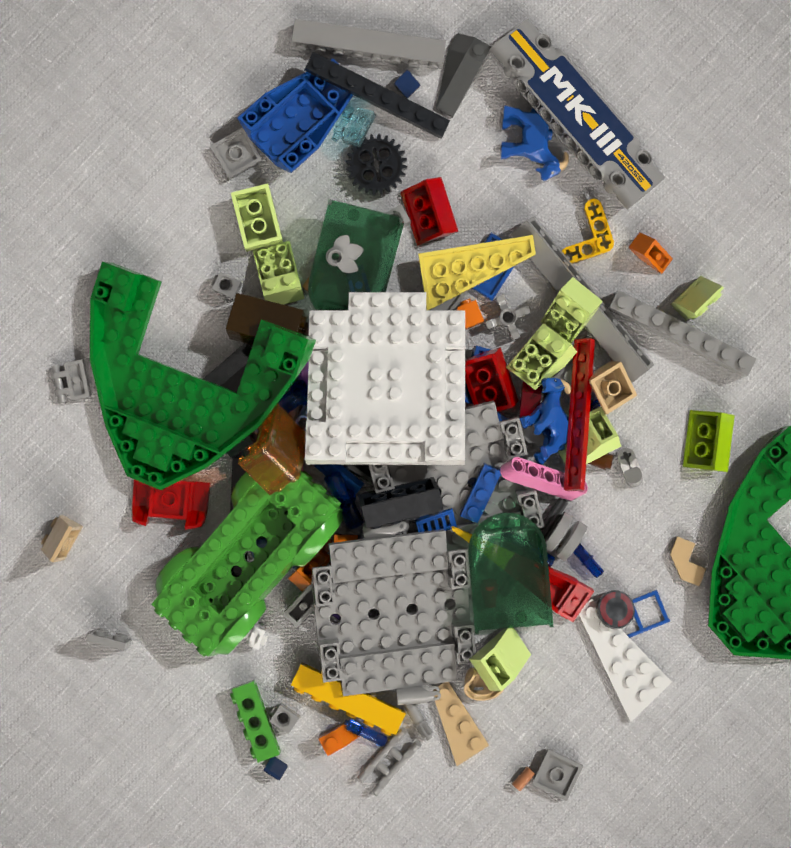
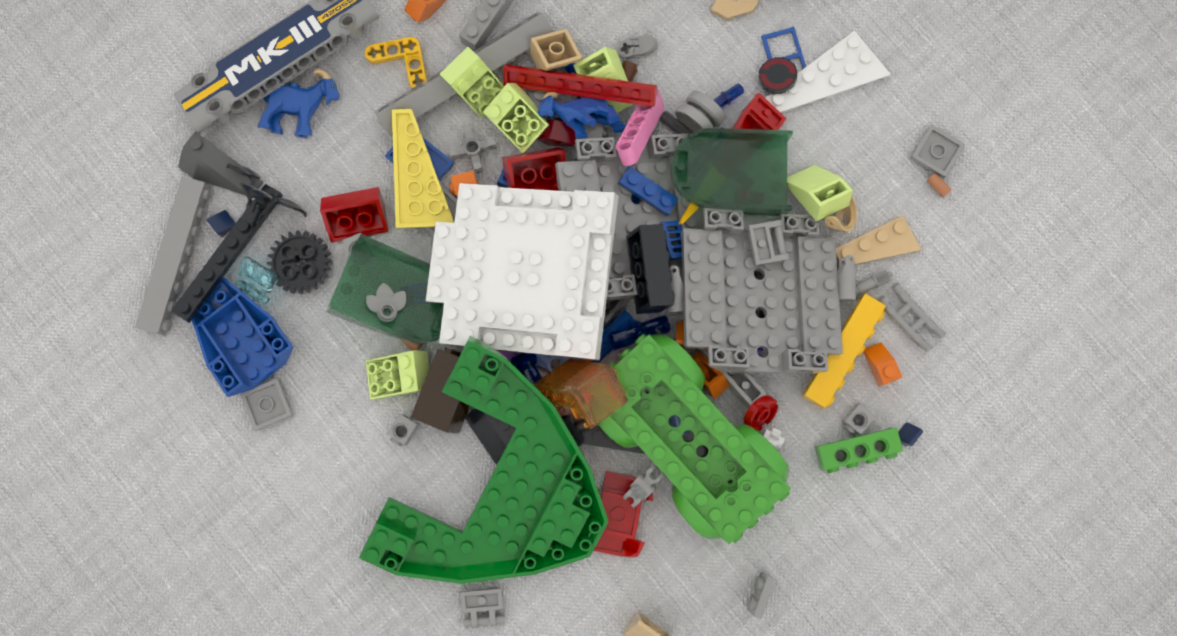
camera: 80 degrees left, 5 degrees down
(196, 518) = (643, 486): none -> light grey pin
(257, 217) = (335, 389): yellowish green brick -> none
(280, 623) = (761, 412): none -> red tile
(361, 730) = (879, 337): clear blue piece -> none
(428, 116) = (253, 208): none -> black plant
(441, 608) = (762, 244): none -> light grey plate

